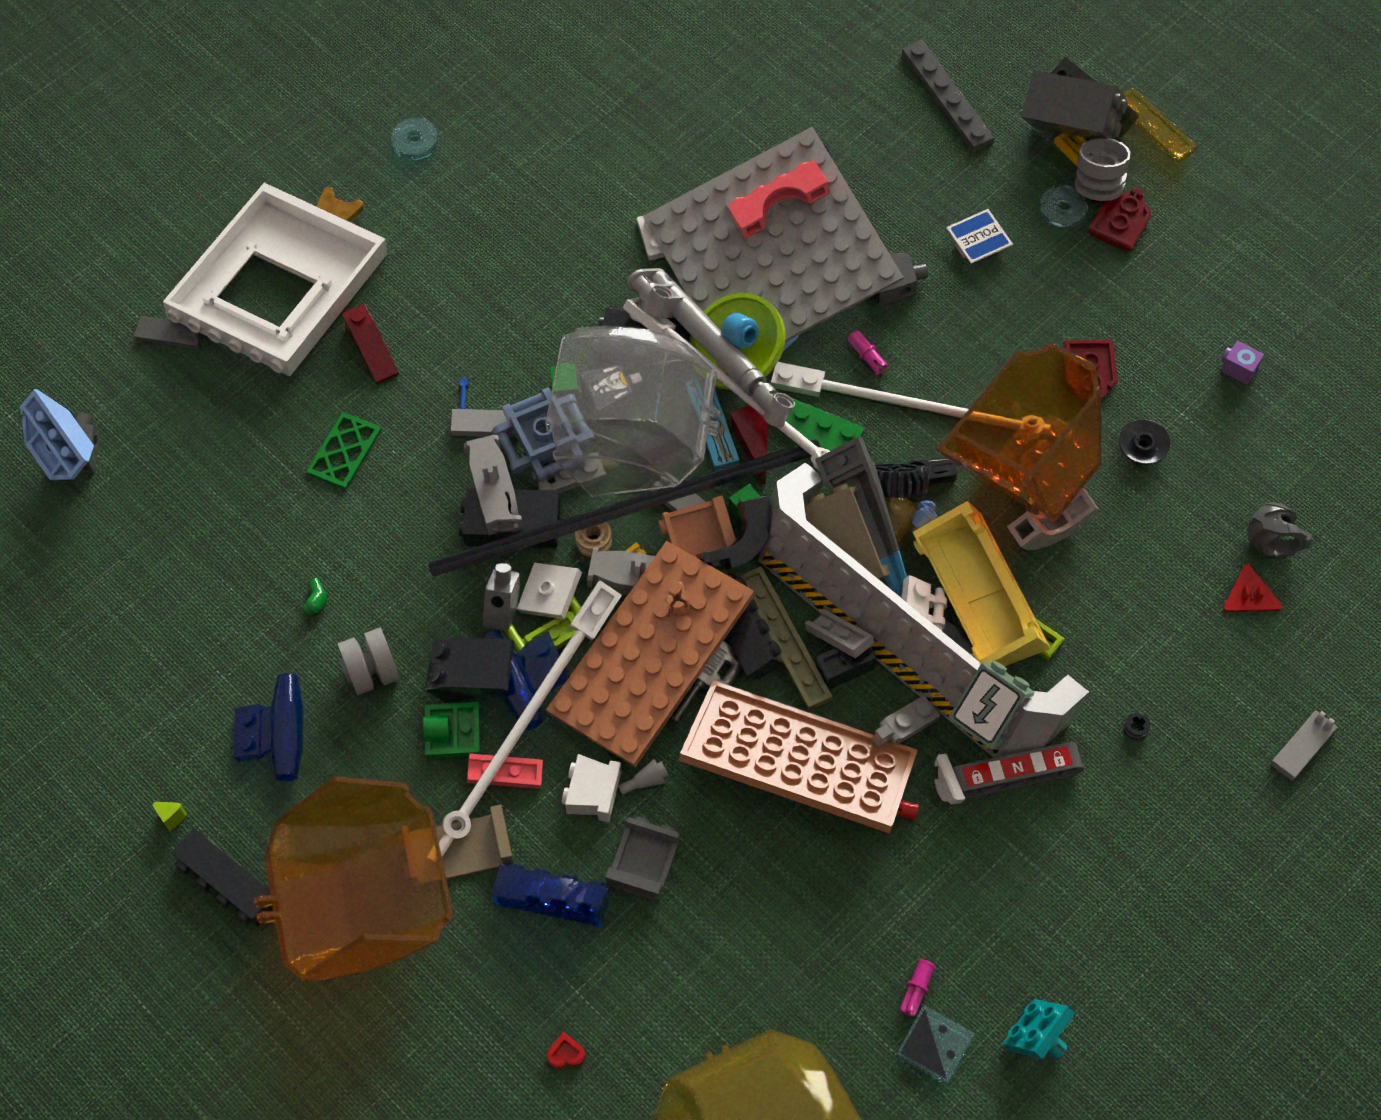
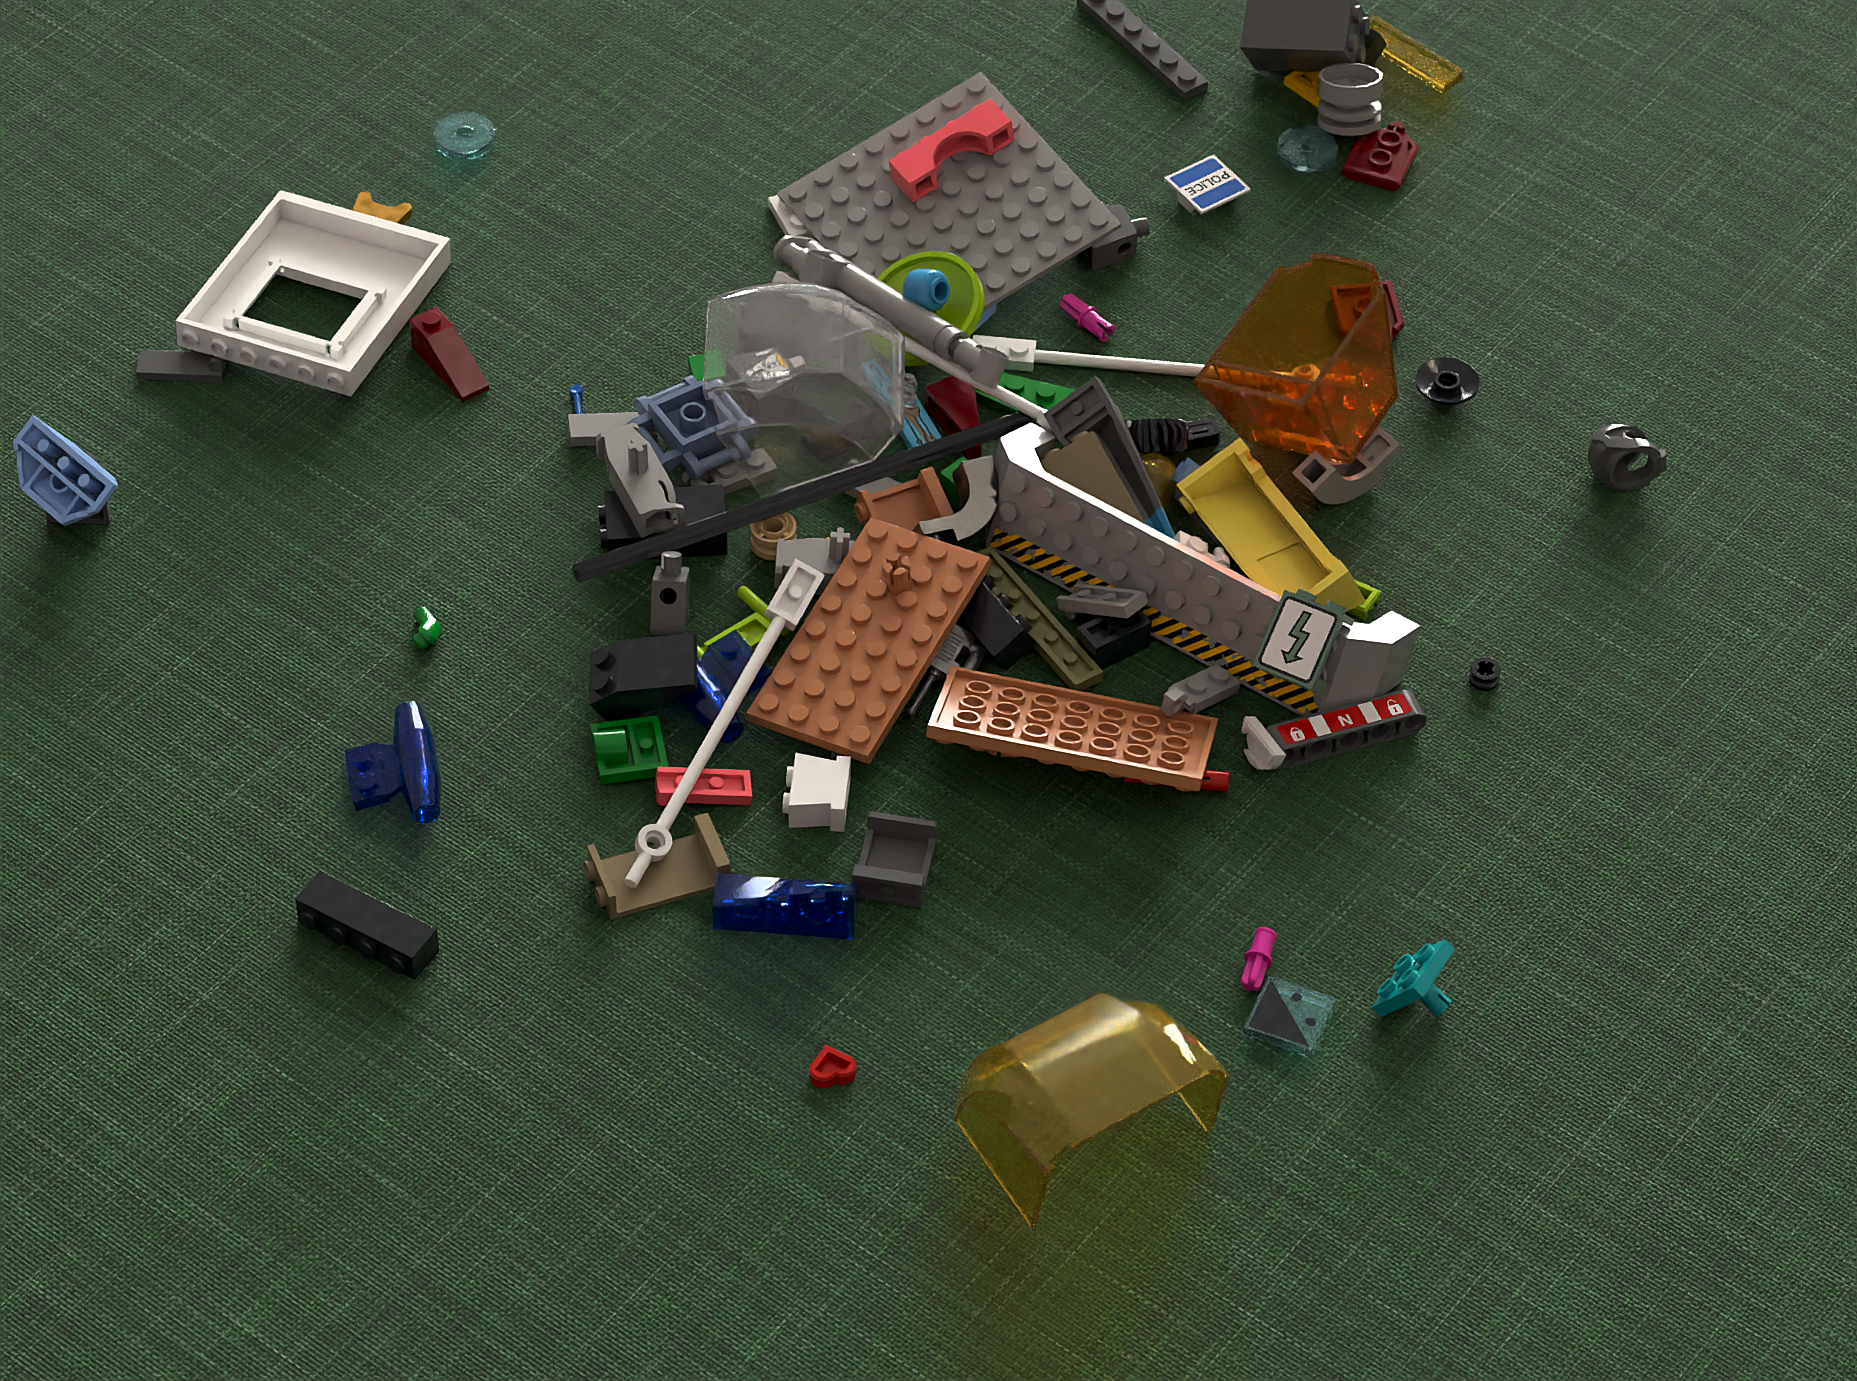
camera: 10 degrees left, 15 degrees down
(170, 813) = (281, 866): lime slope -> none
(352, 466) = (419, 500): green window -> none
(354, 879) = (536, 888): clear orange windscreen -> none
(376, 659) = (512, 680): light grey wheel -> none
(549, 590) = (727, 592): white plate -> none
(650, 775) = (888, 774): light grey cone -> none
(1241, 362) = (1554, 290): medium lavender brick -> none
(1251, 594) = (1603, 530): red piece -> none
(1304, 745) = (1692, 675): light grey hinge -> none

